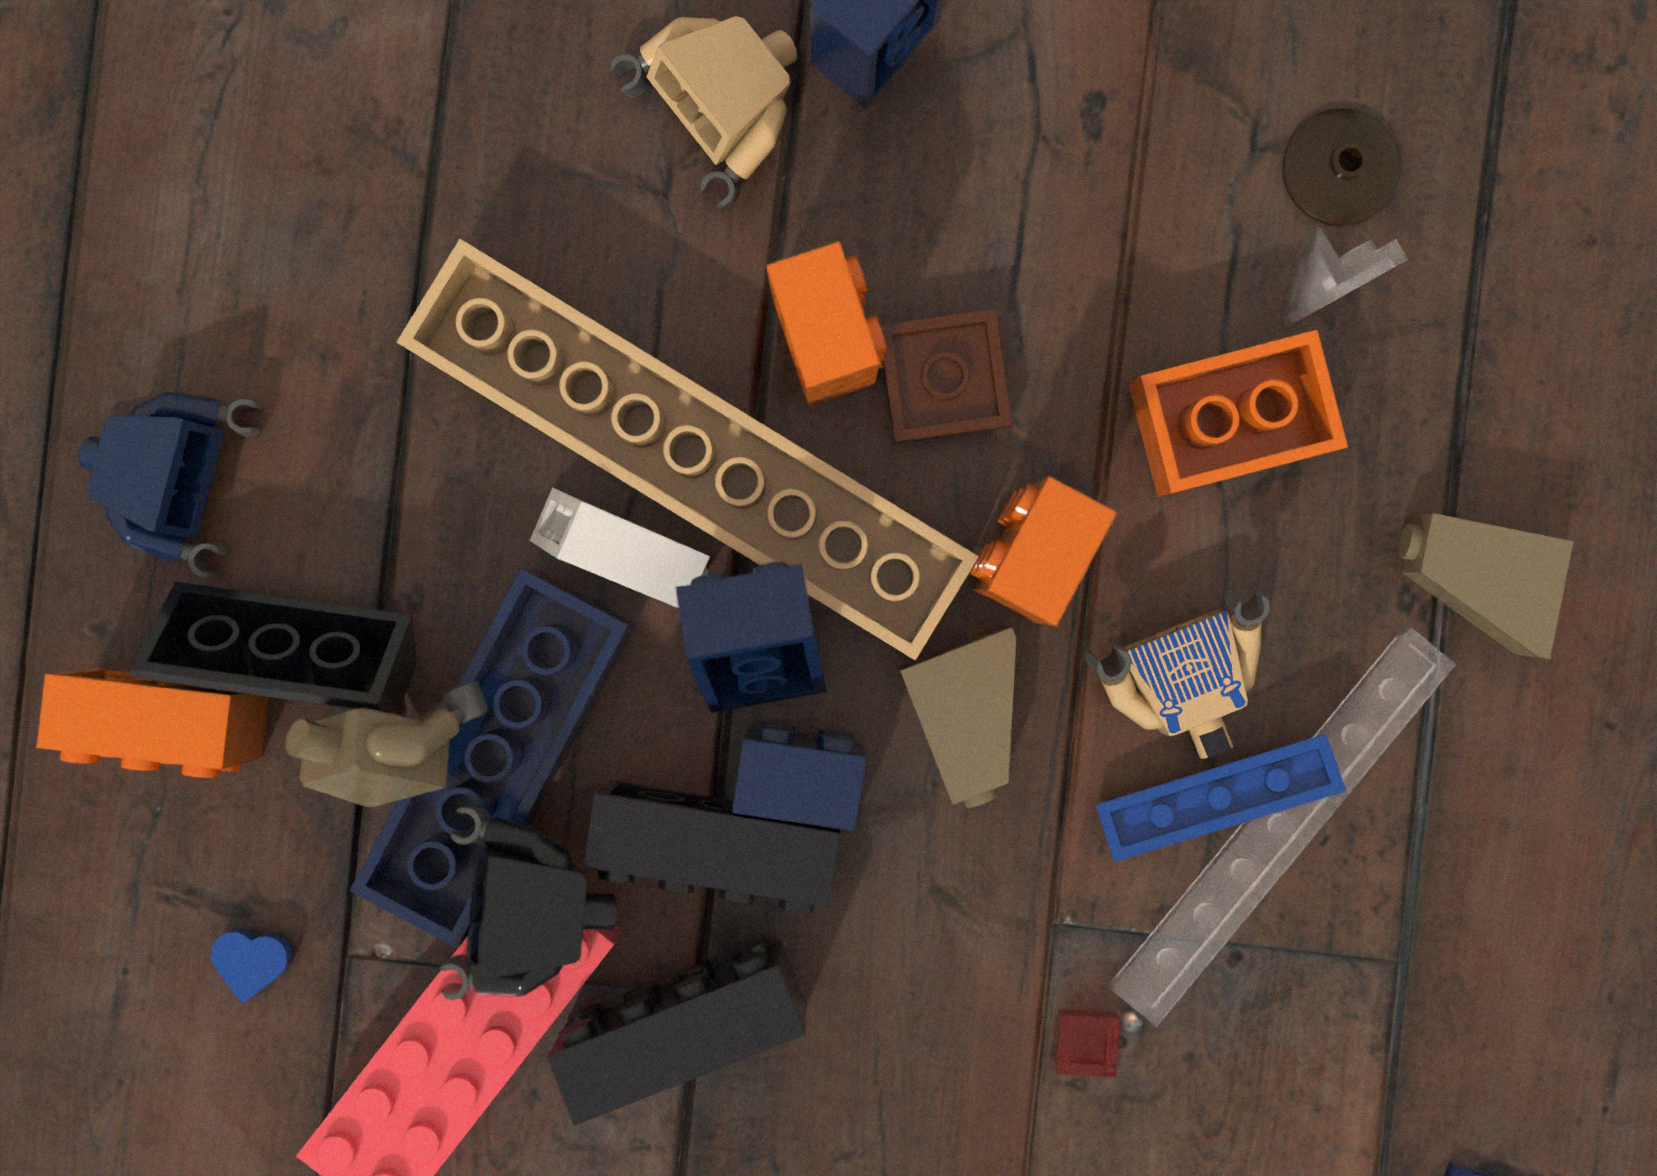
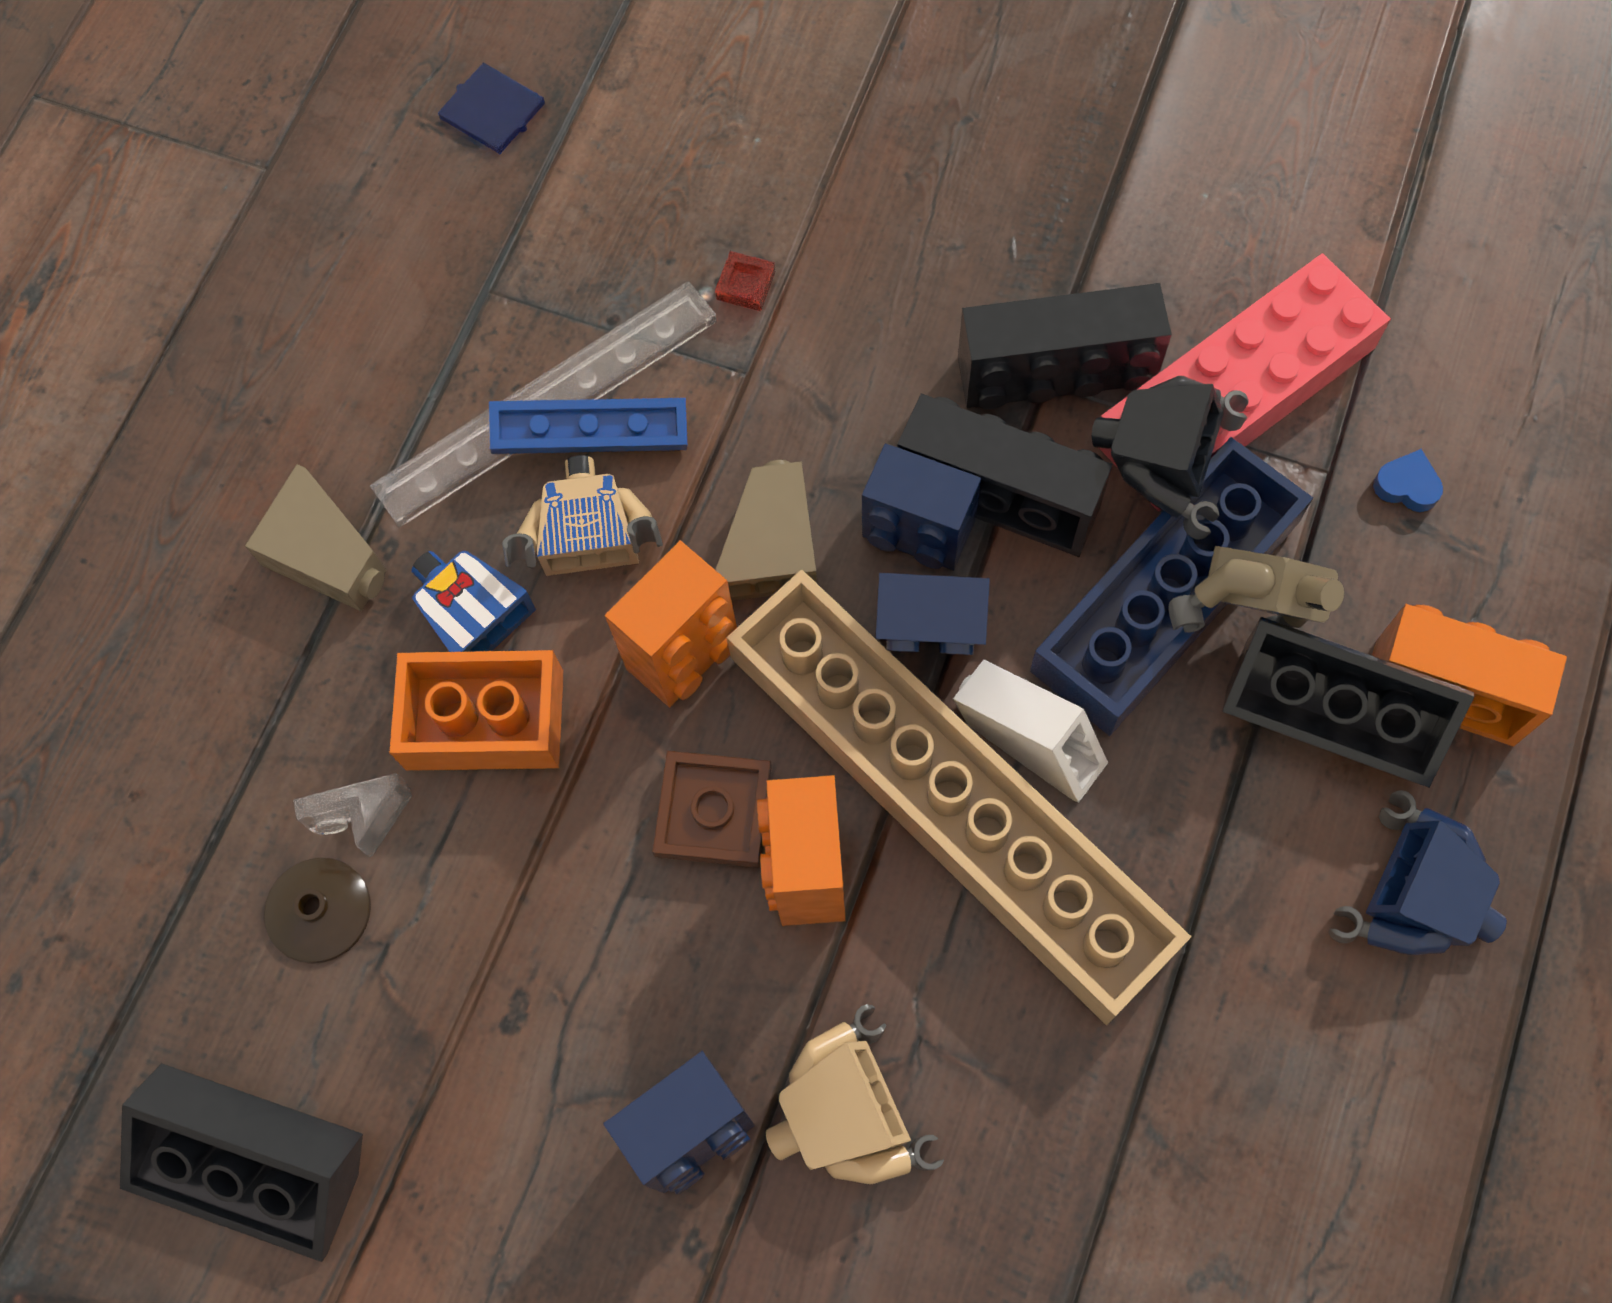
camera: 155 degrees left, 20 degrees down
(1292, 541) = (469, 601): none -> torso

